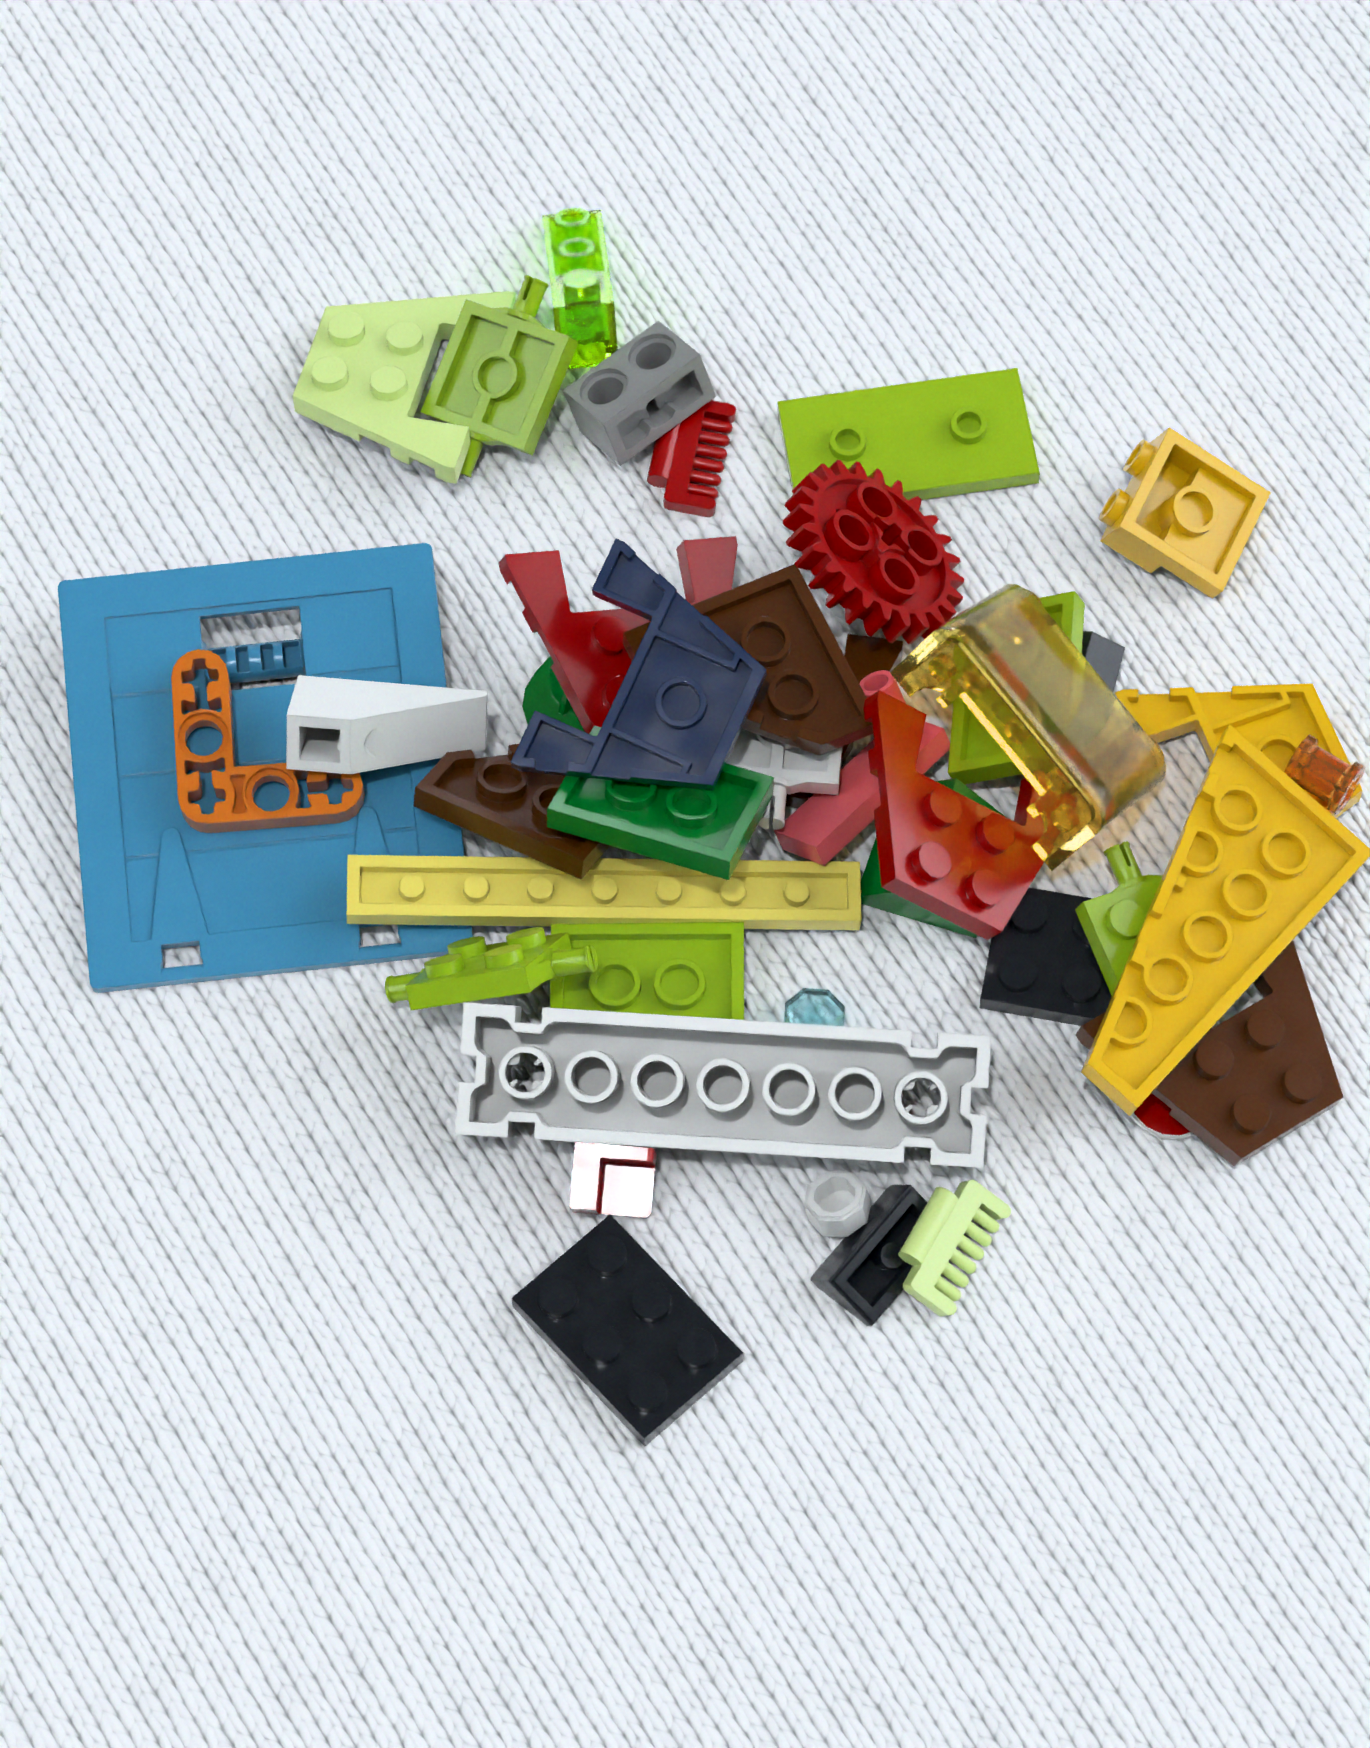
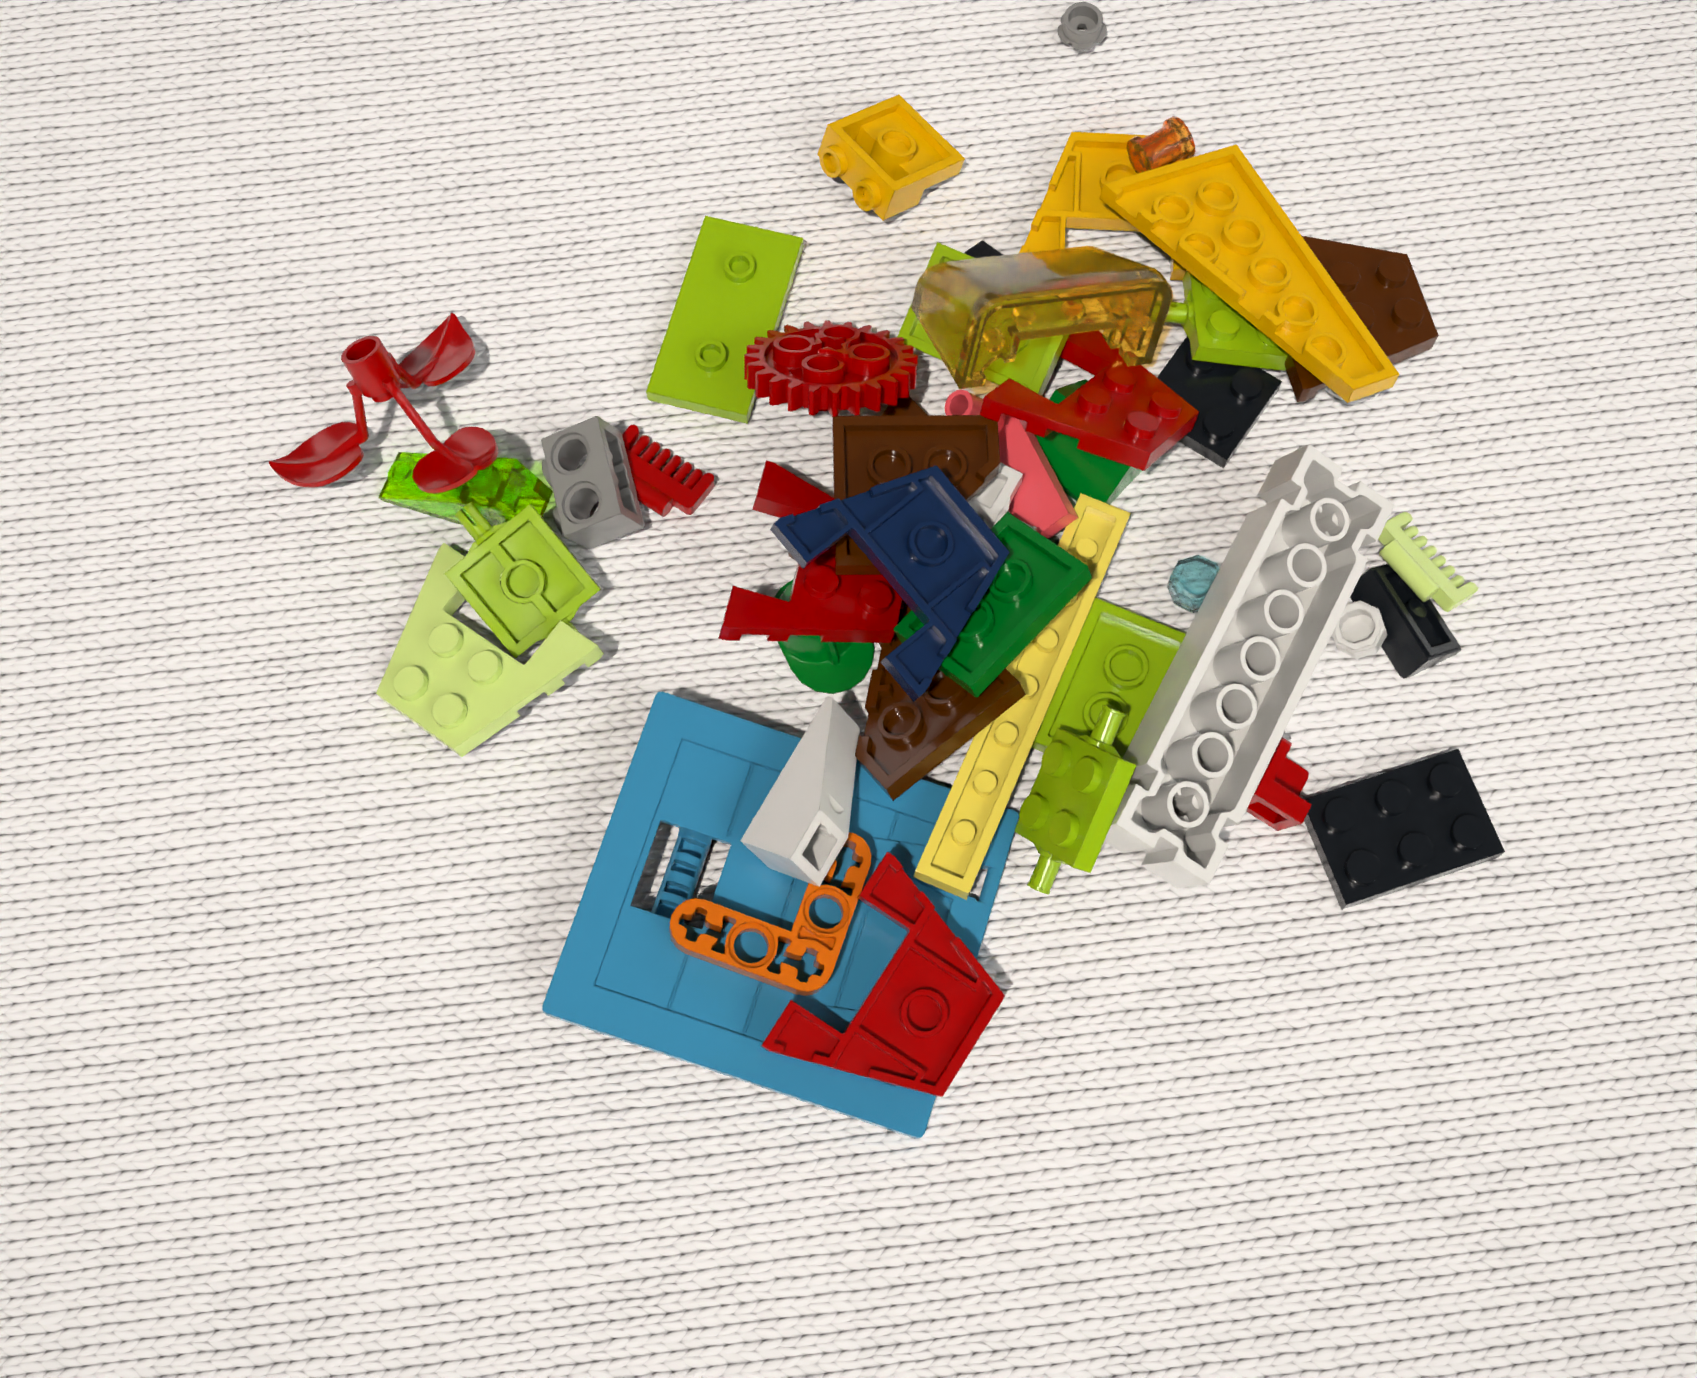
camera: 65 degrees left, 5 degrees up
(210, 921) = (918, 1013): none -> red wing
(638, 136) = (378, 376): none -> red plant

